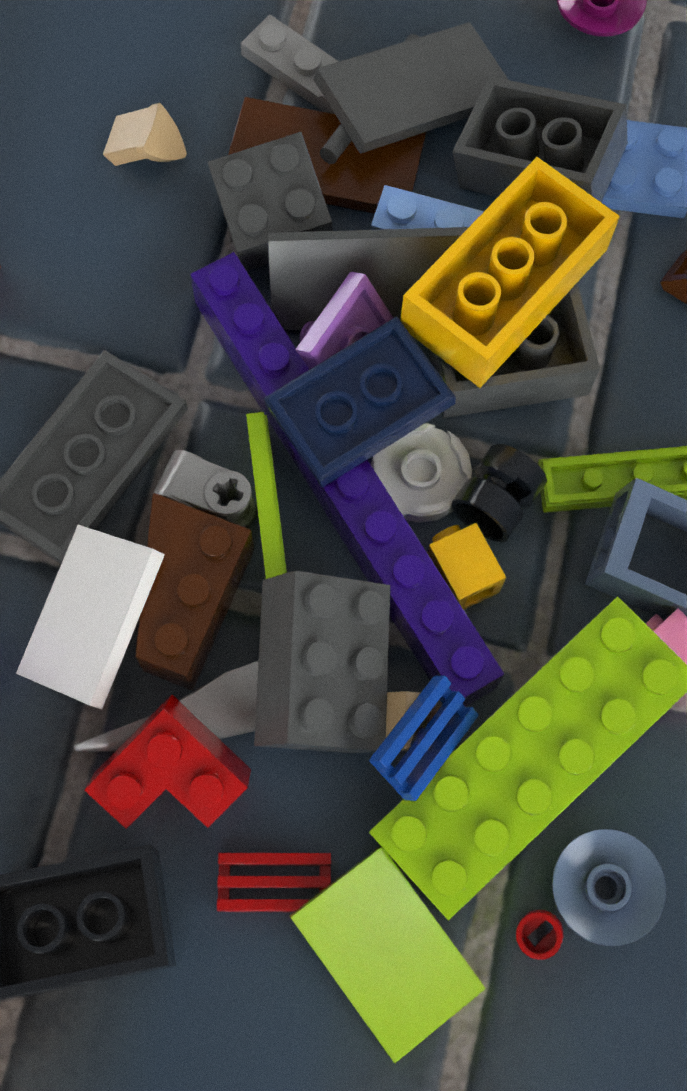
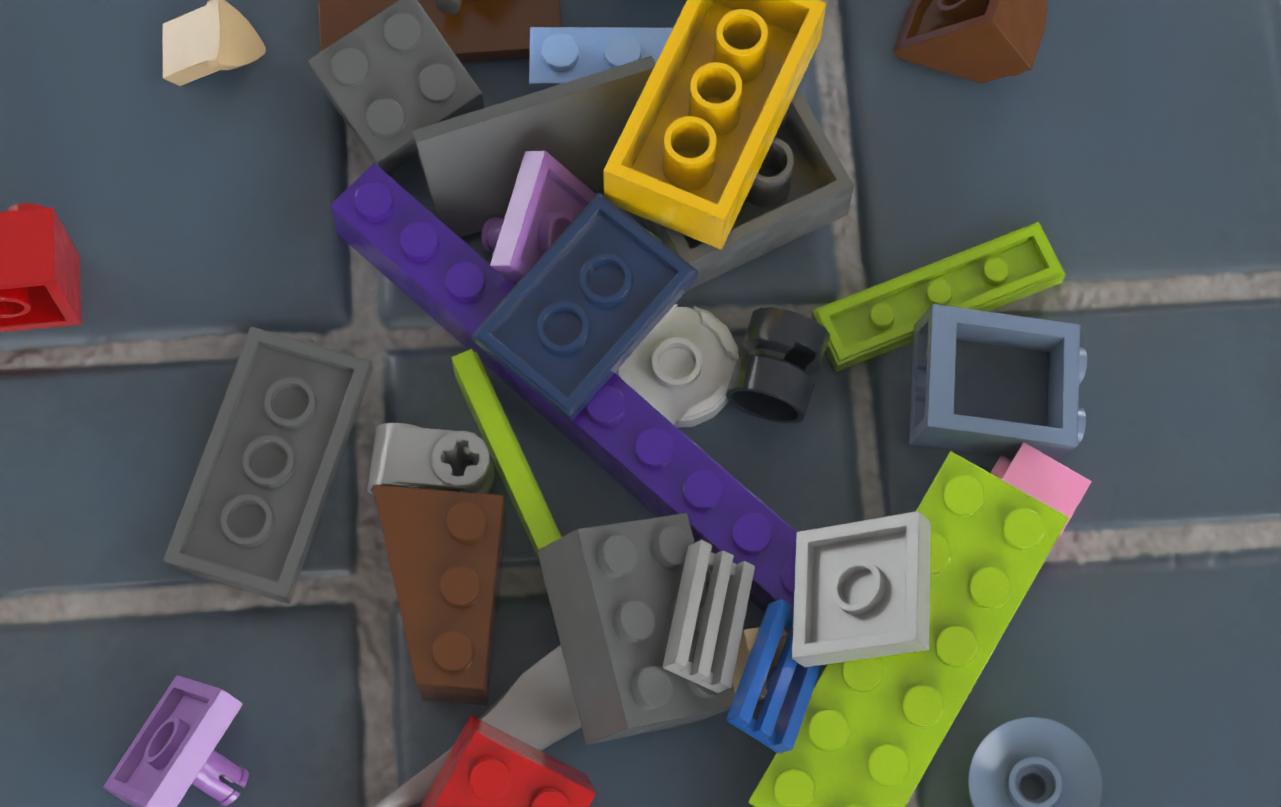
camera: 15 degrees left, 0 degrees up
(90, 615) = (344, 651): white tile -> none
(388, 678) = (718, 622): none -> light grey tile
(466, 564) = (765, 460): yellow brick -> none
(512, 688) = (862, 590): none -> light grey plate

